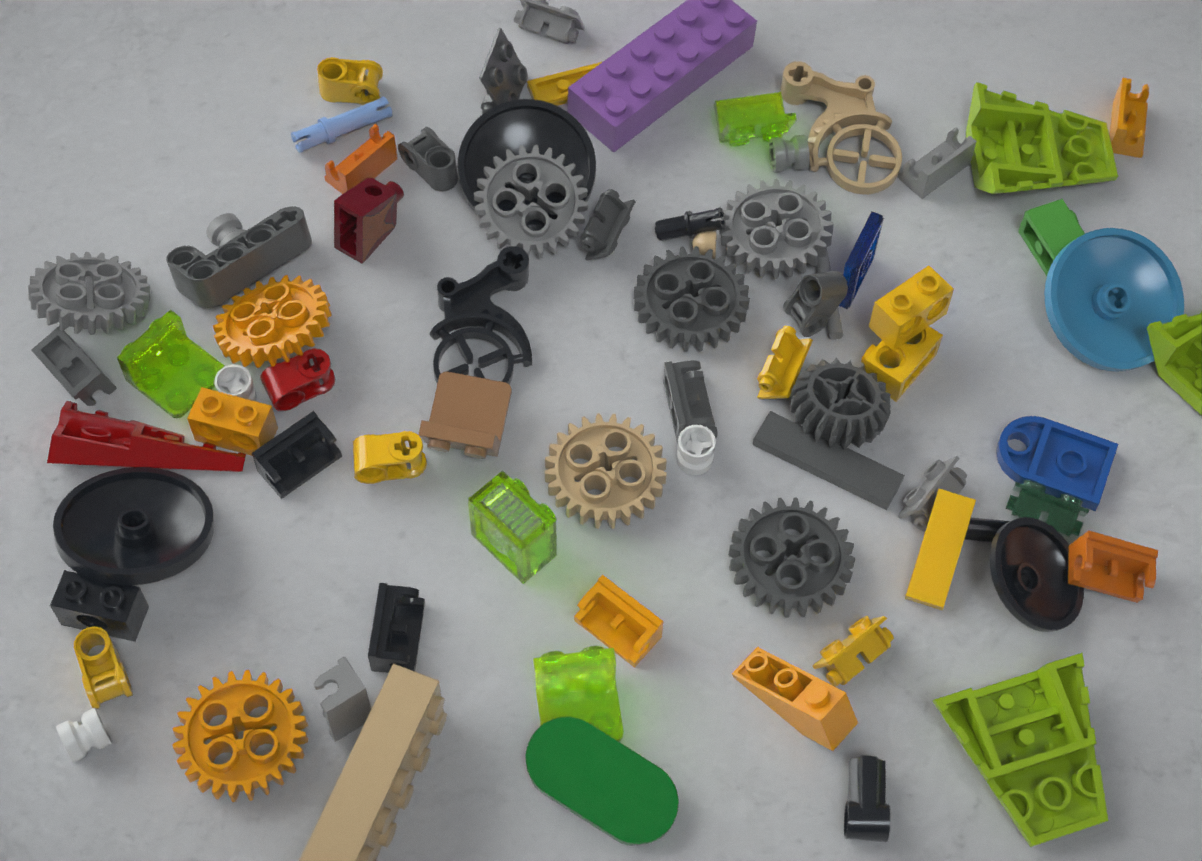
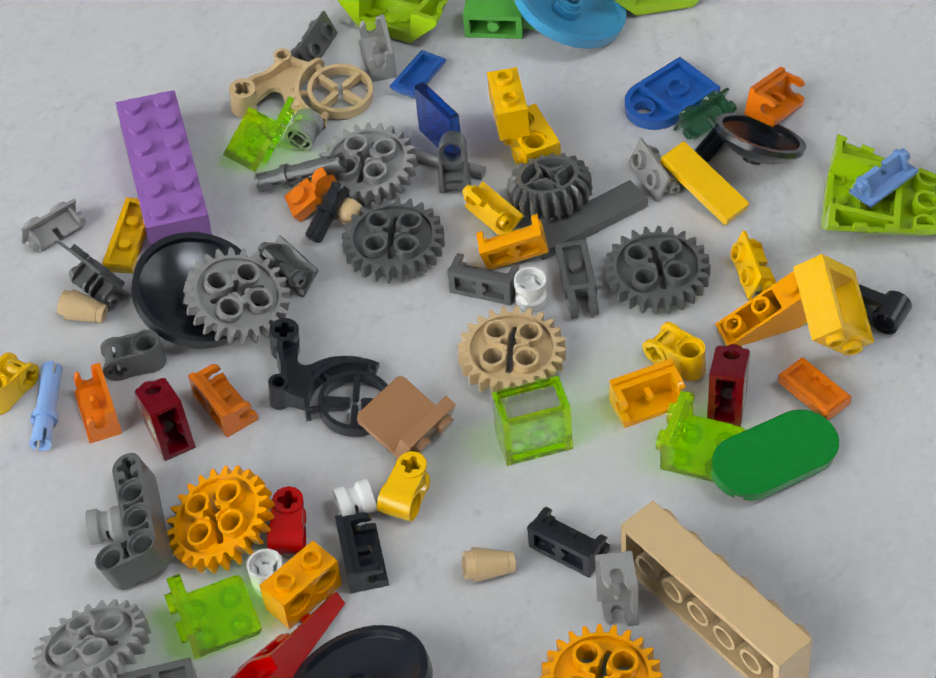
camera: 55 degrees left, 10 degrees down
(334, 569) = (485, 563): none -> tan cone
(350, 418) = (355, 499): none -> white wheel
(417, 254) = (221, 400): none -> orange hinge
(465, 90) = (80, 307): none -> tan cone
(667, 691) = (728, 370): none -> dark red torso
(691, 621) = (684, 349): none -> yellow piece
(702, 197) = (308, 194): none -> orange plate
(714, 785) = (814, 389): none -> orange plate
(717, 170) = (288, 175): none -> dark grey pin
(740, 485) = (577, 275): none -> dark grey hinge
(744, 404) = (513, 246): none -> light orange hinge
(797, 734) = (833, 305): none -> yellow window
(916, 104) = (316, 39): none -> dark grey hinge
(932, 214) = (420, 69): none -> blue tile
(1044, 732) = (882, 181): none -> medium blue hinge

